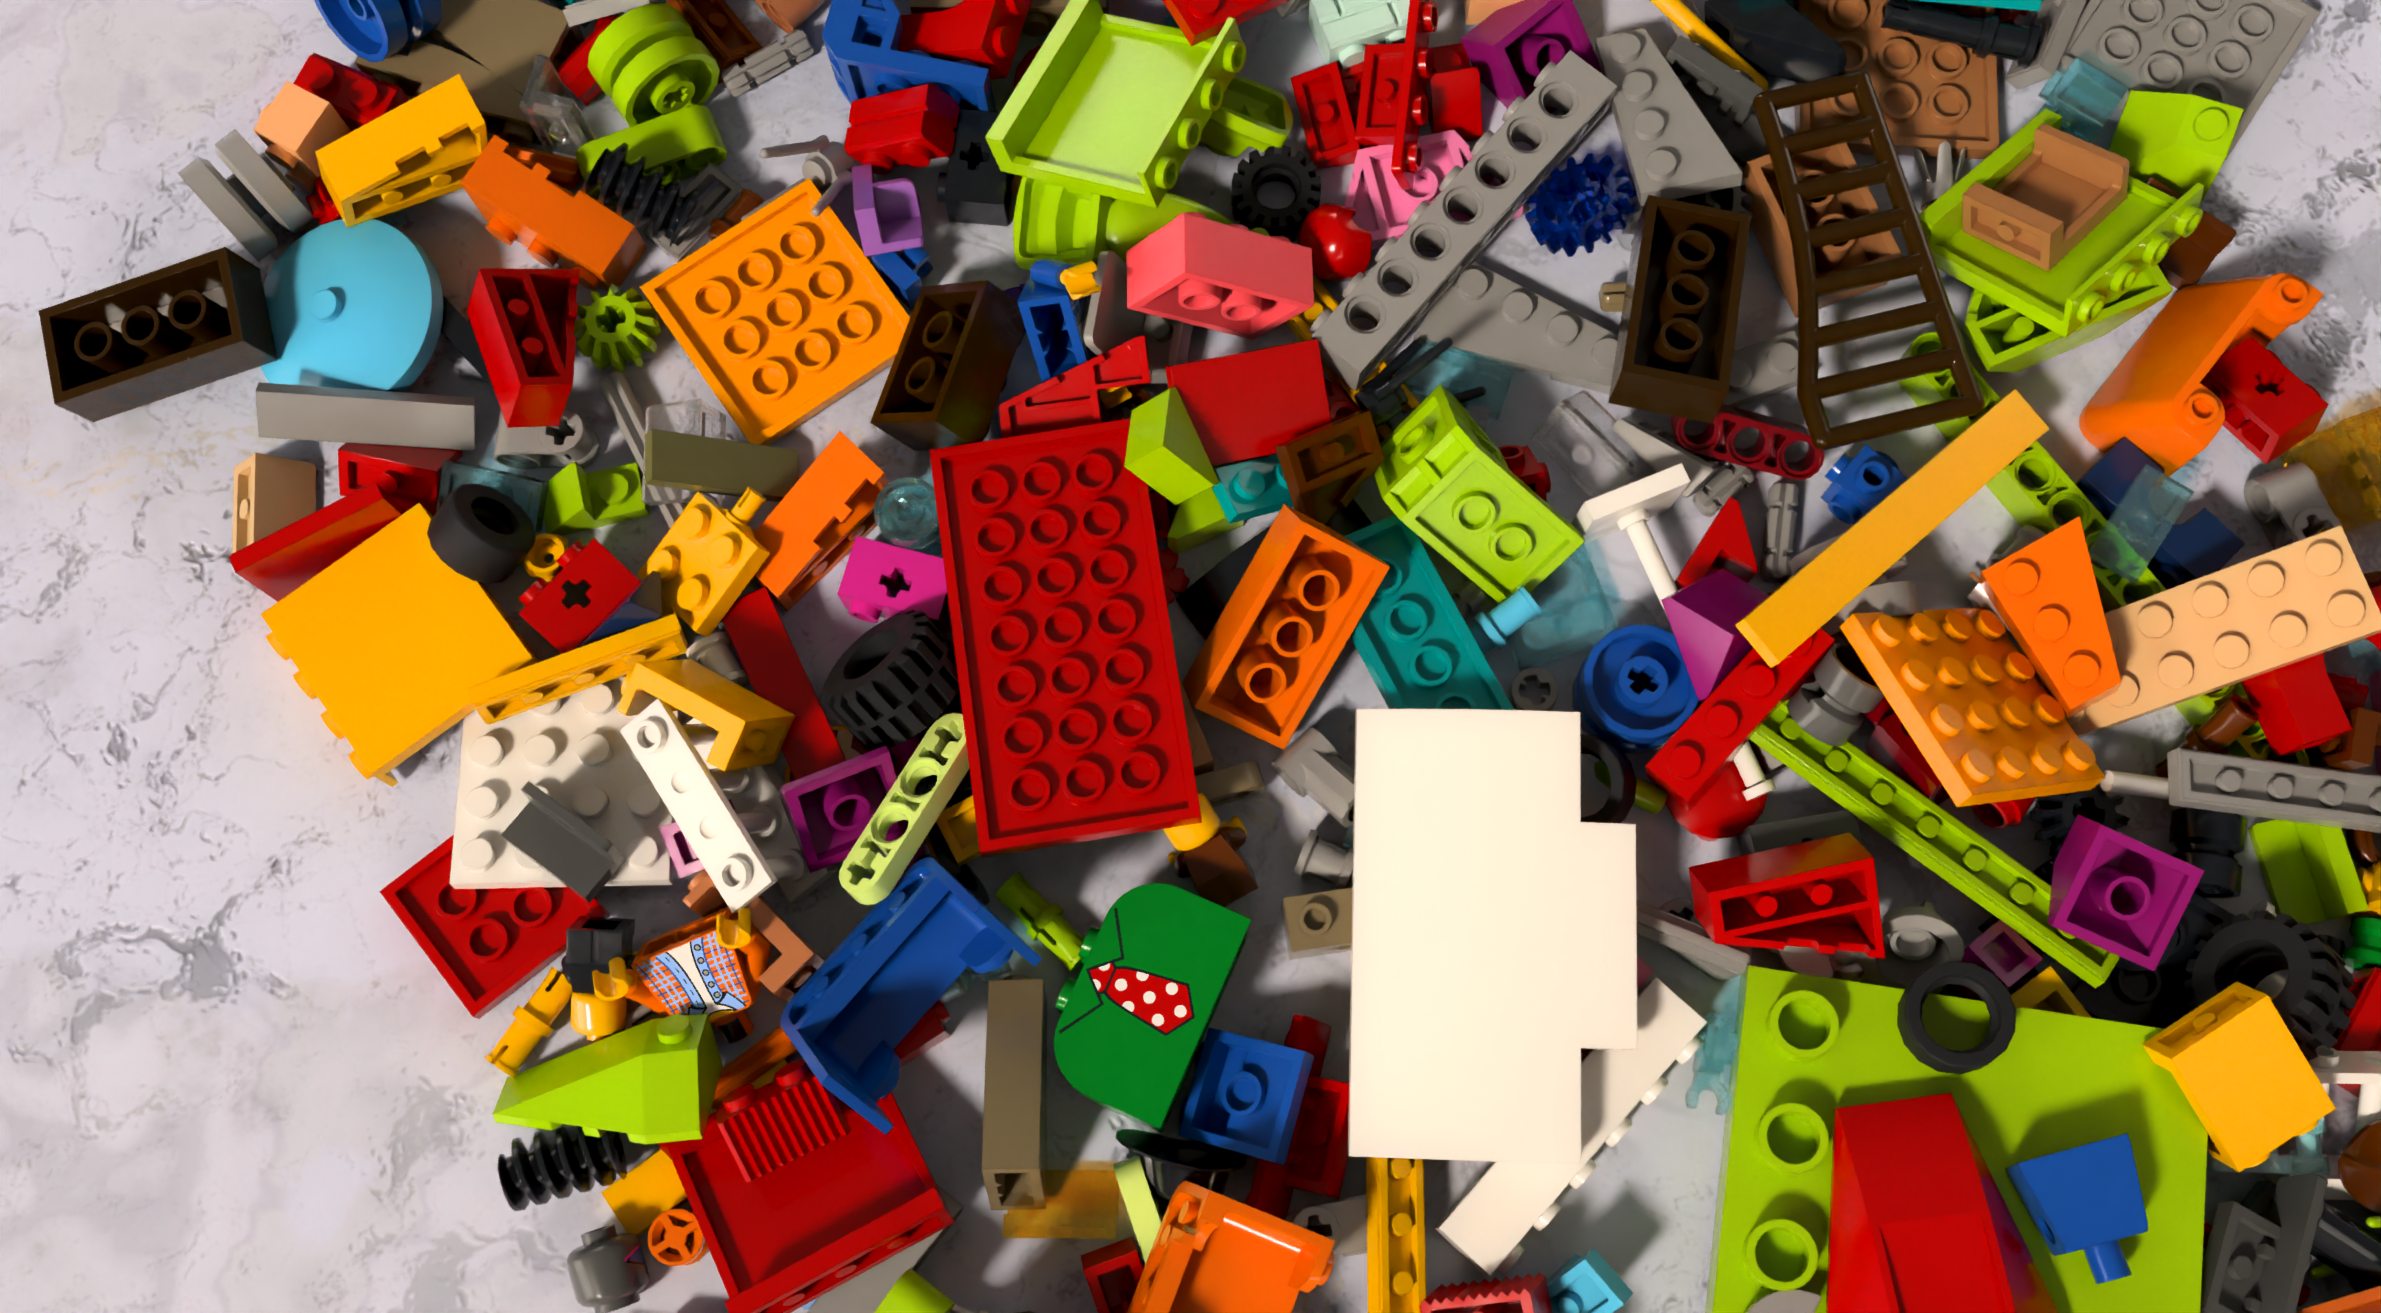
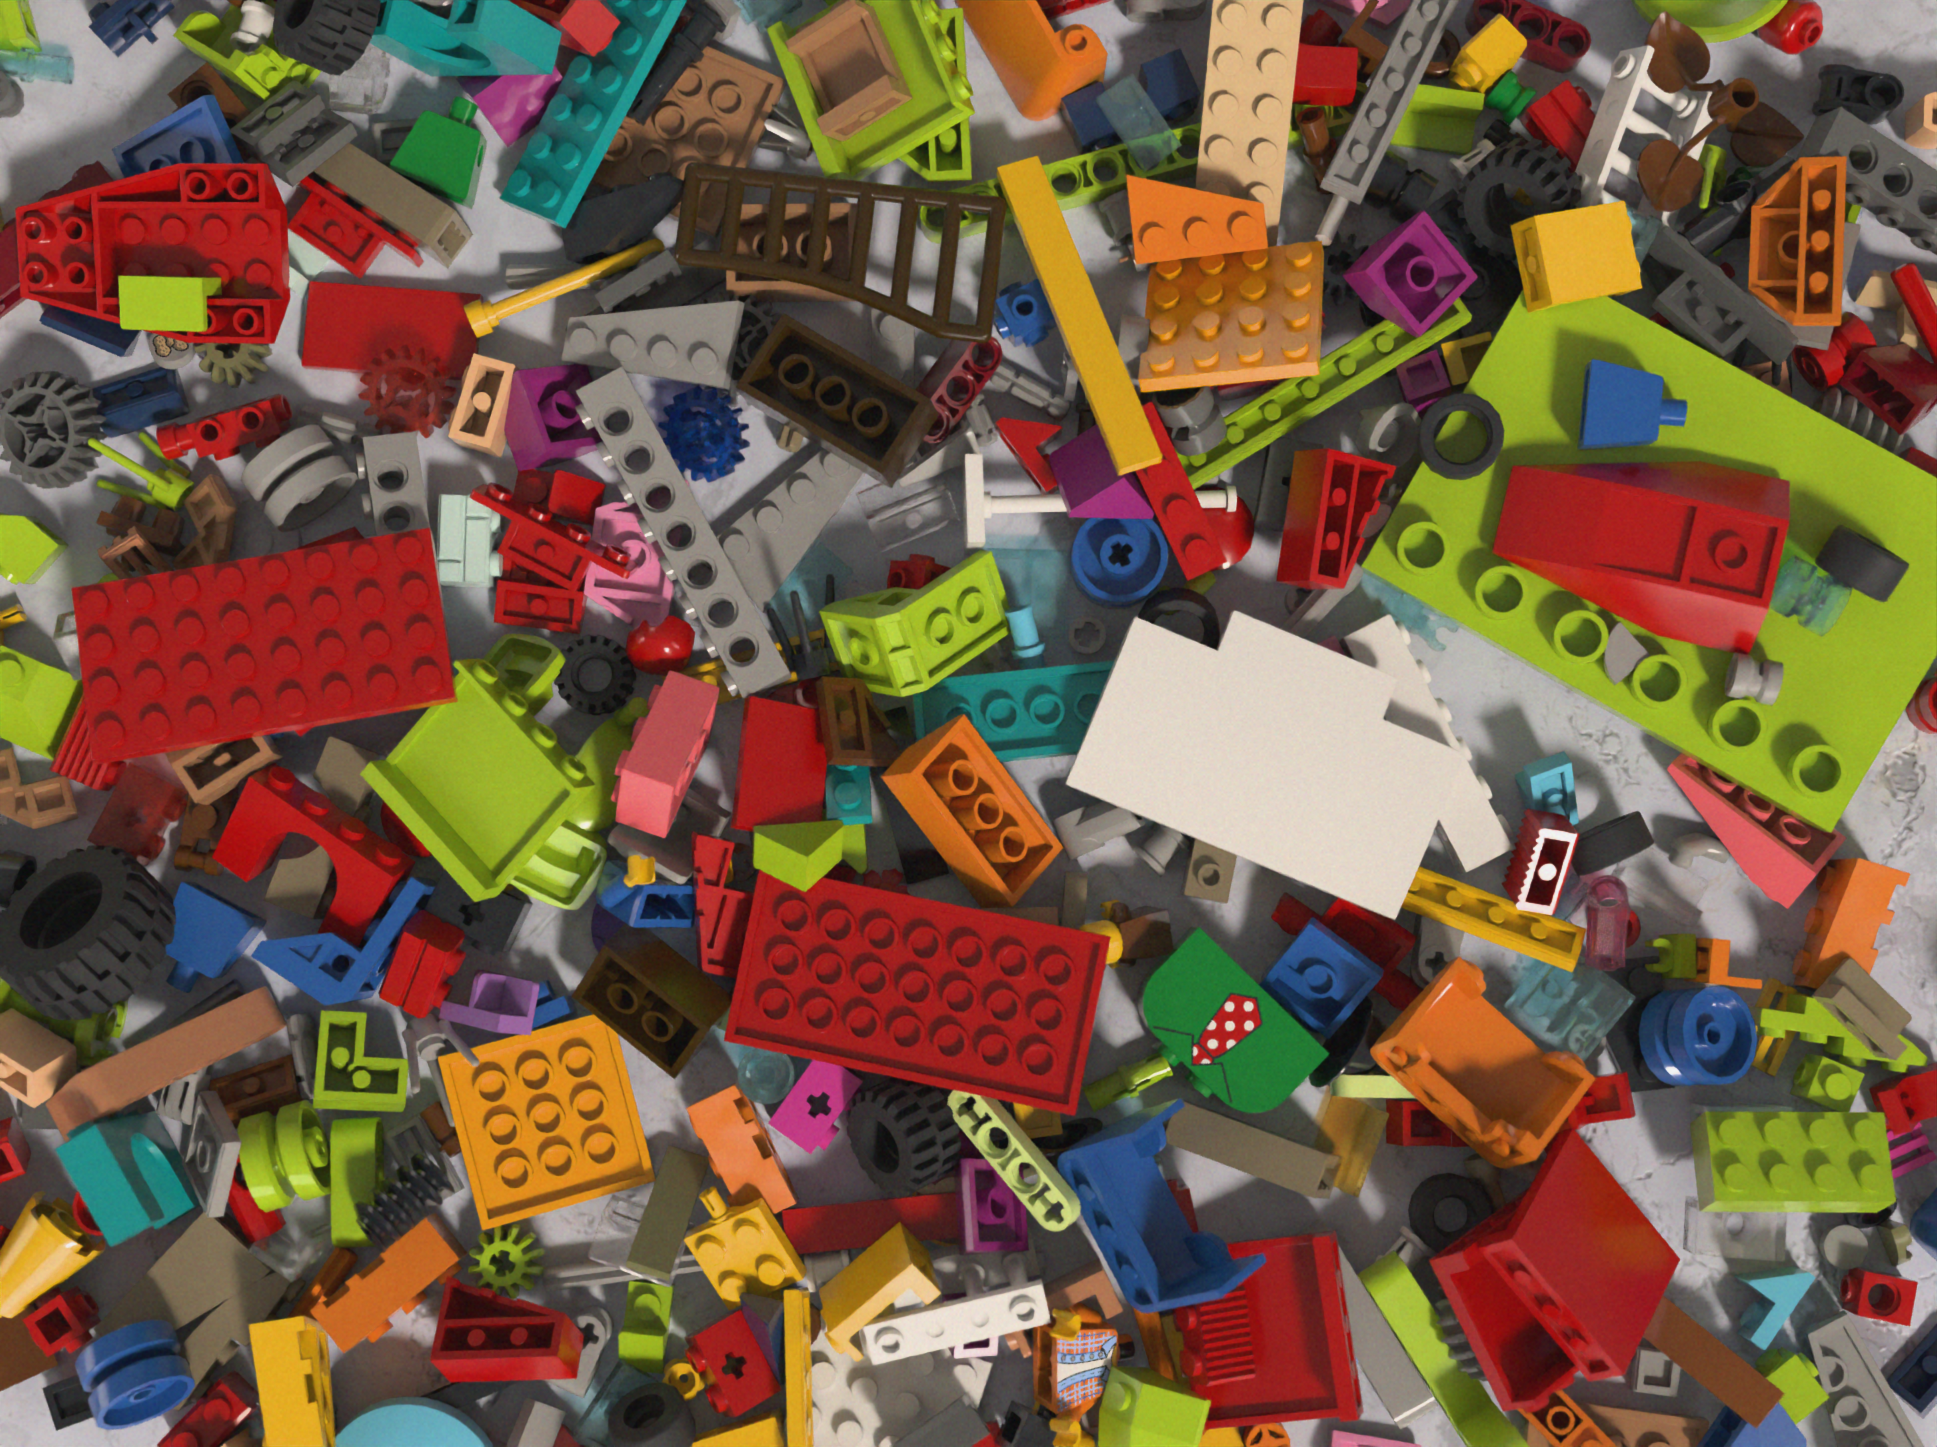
camera: 70 degrees left, 10 degrees up
(760, 95) = (346, 1077): none -> lime brick

